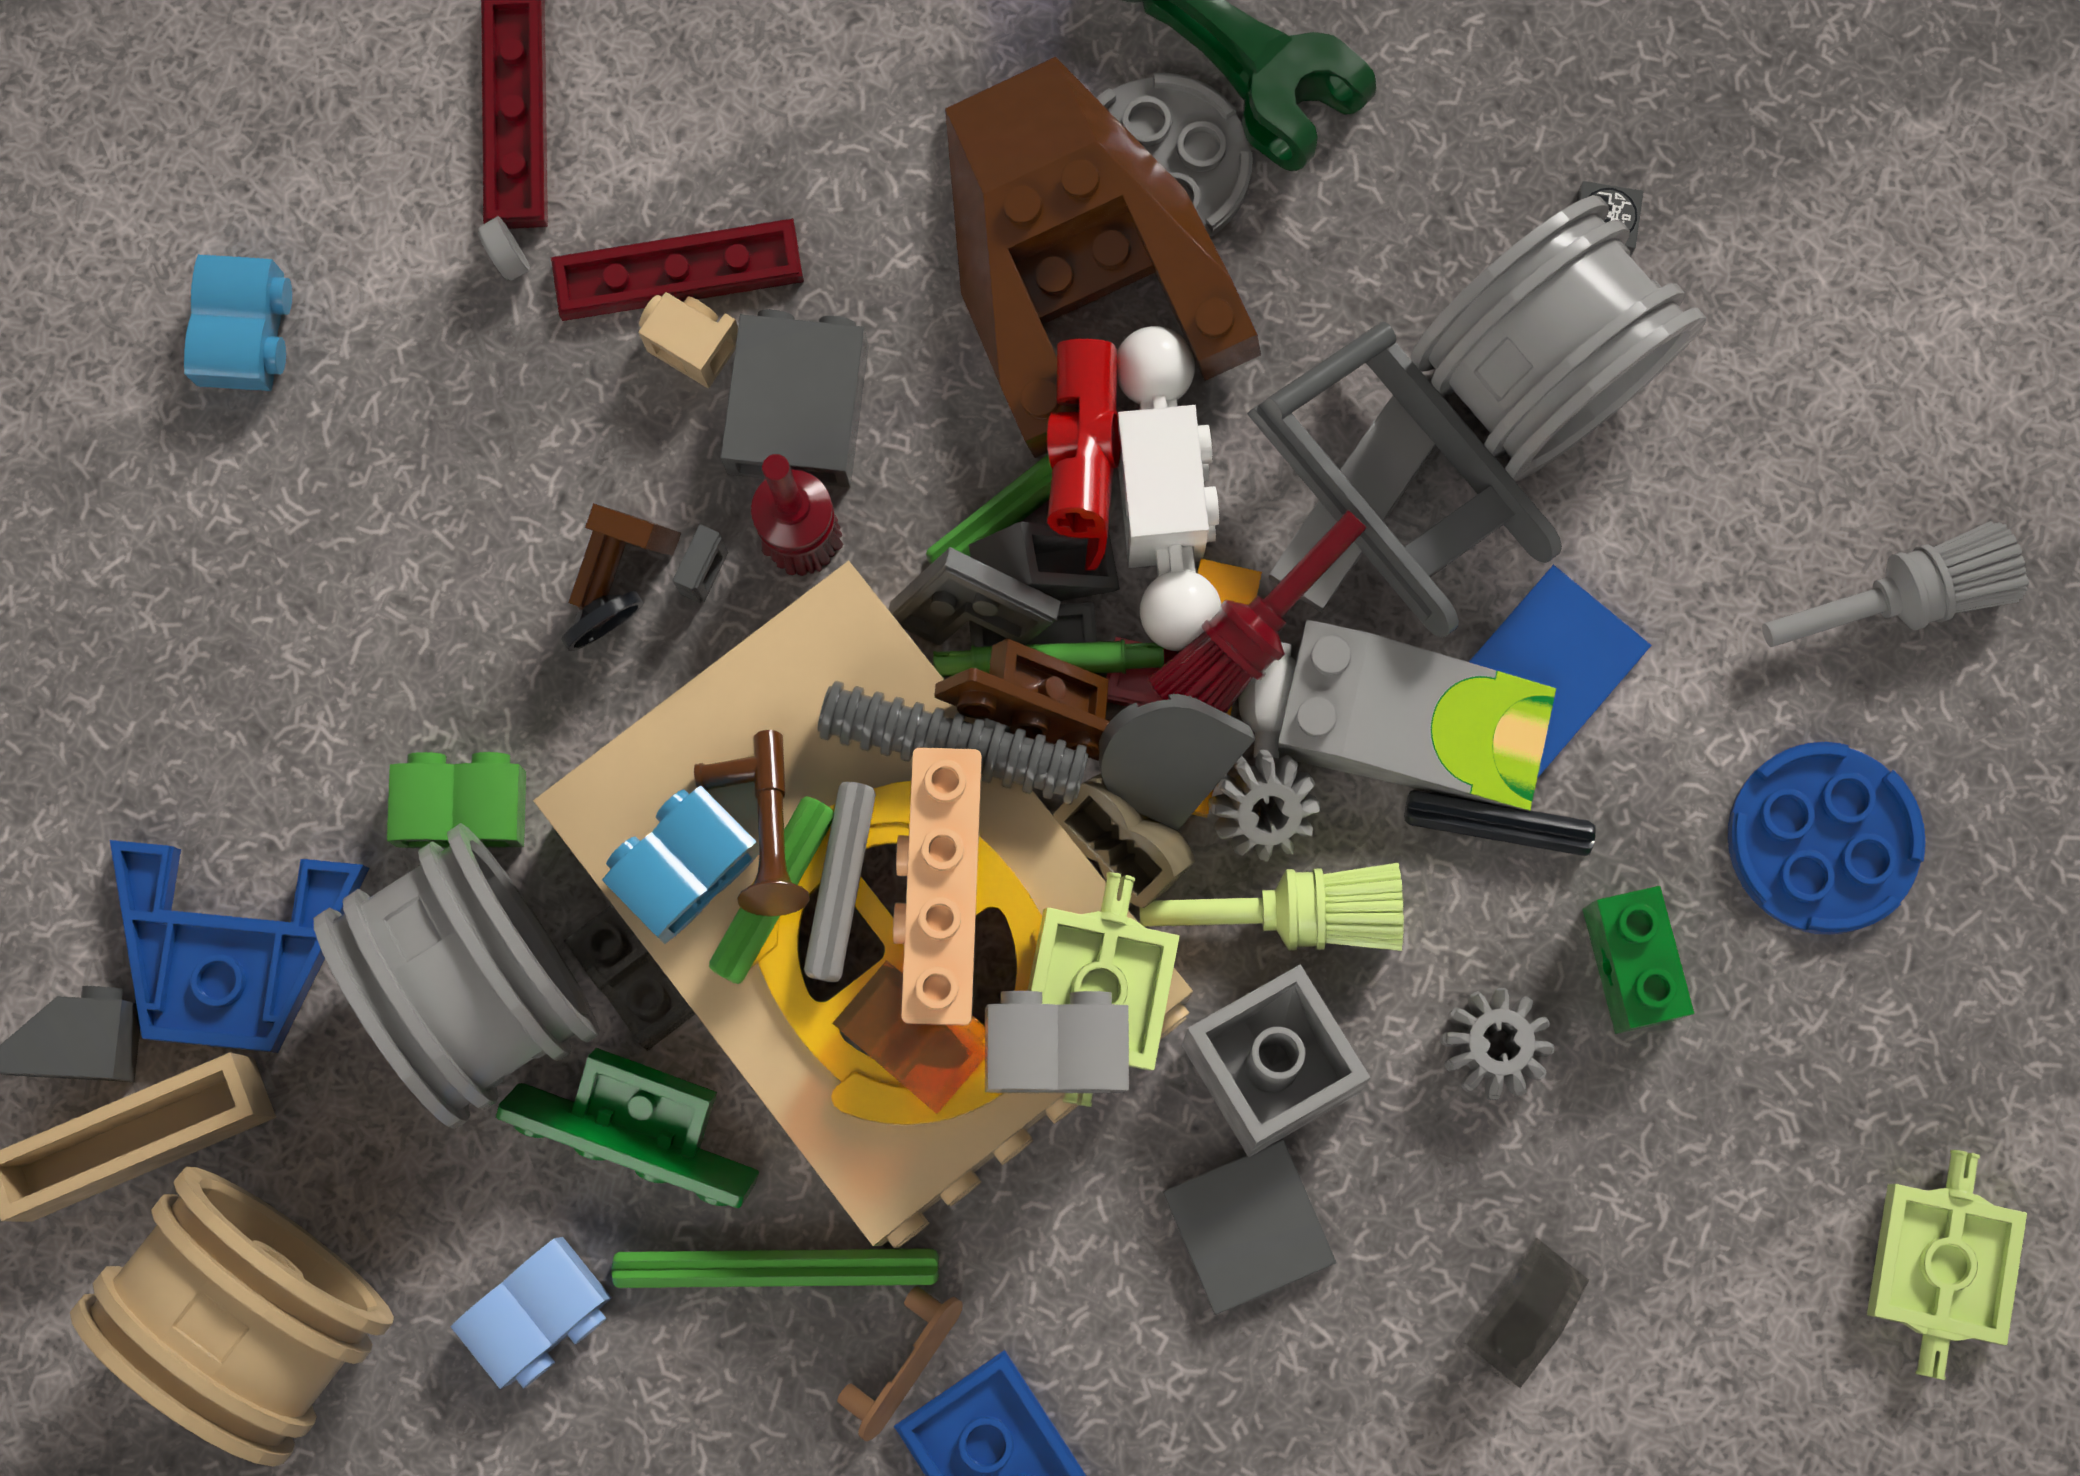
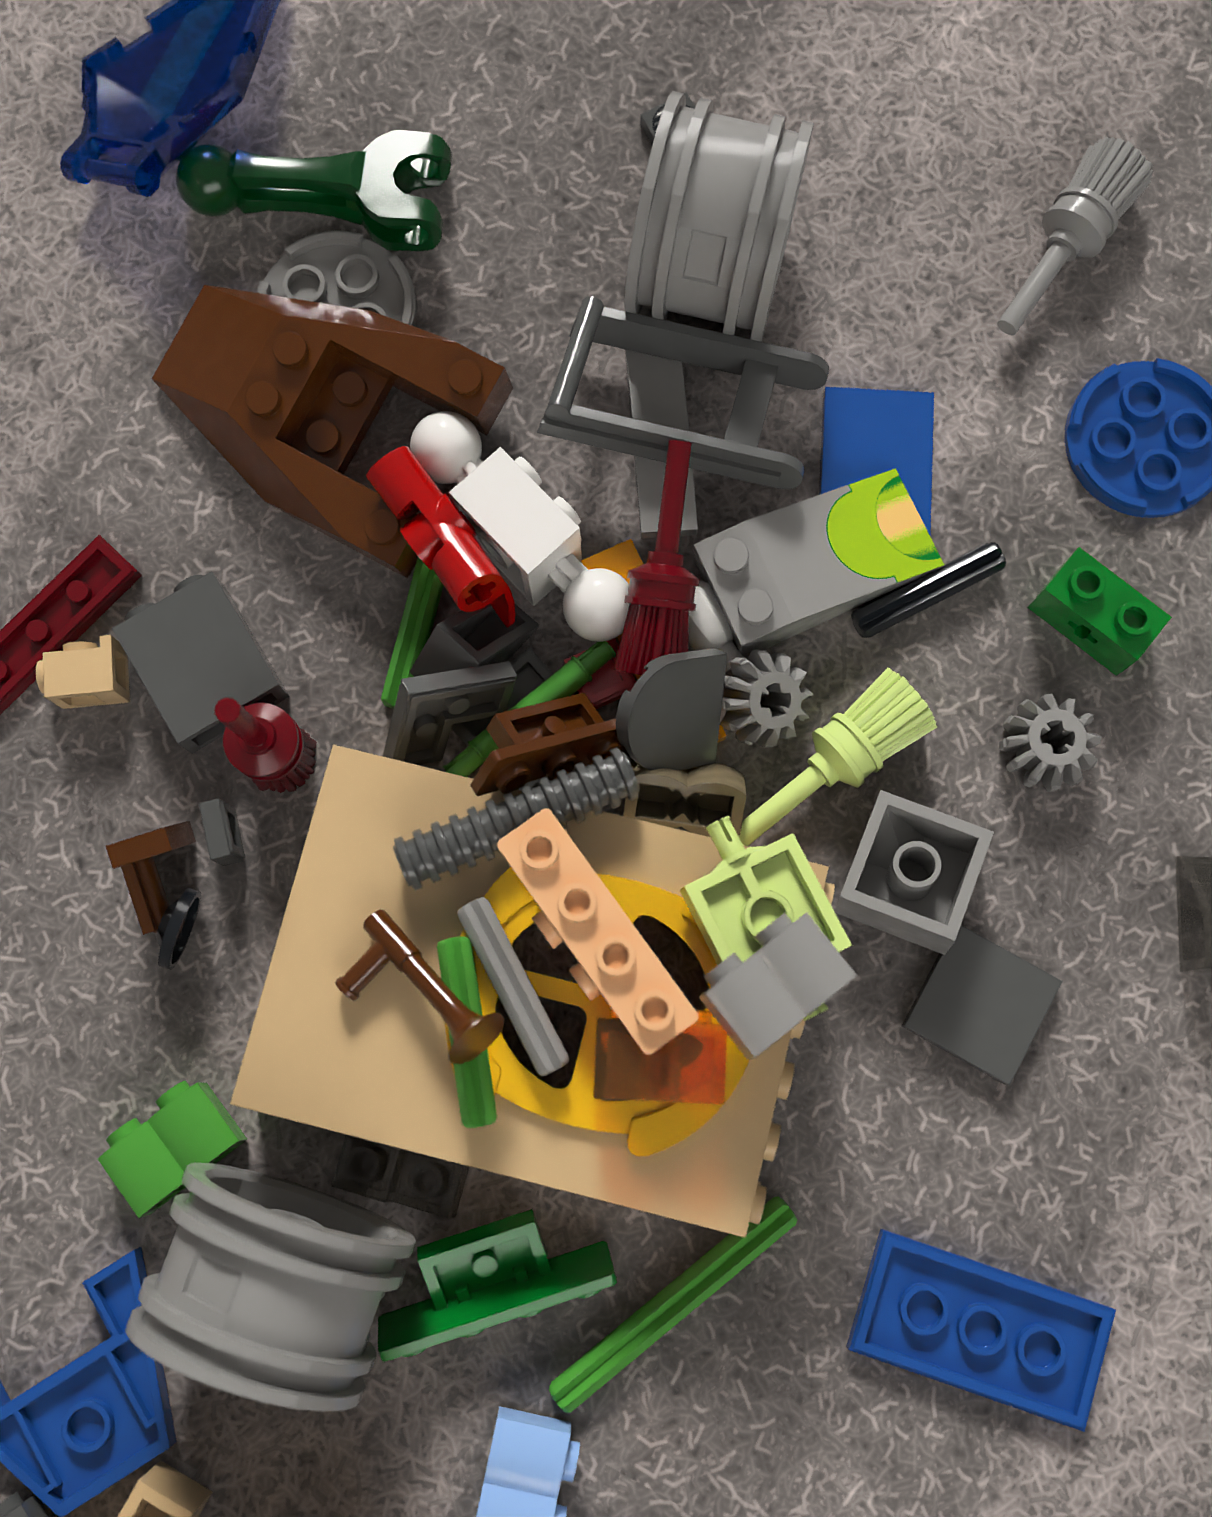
camera: 40 degrees left, 0 degrees up
(680, 863) = (381, 1065): dark azure brick -> none
(878, 1412) = (819, 1352): medium nougat piece -> none

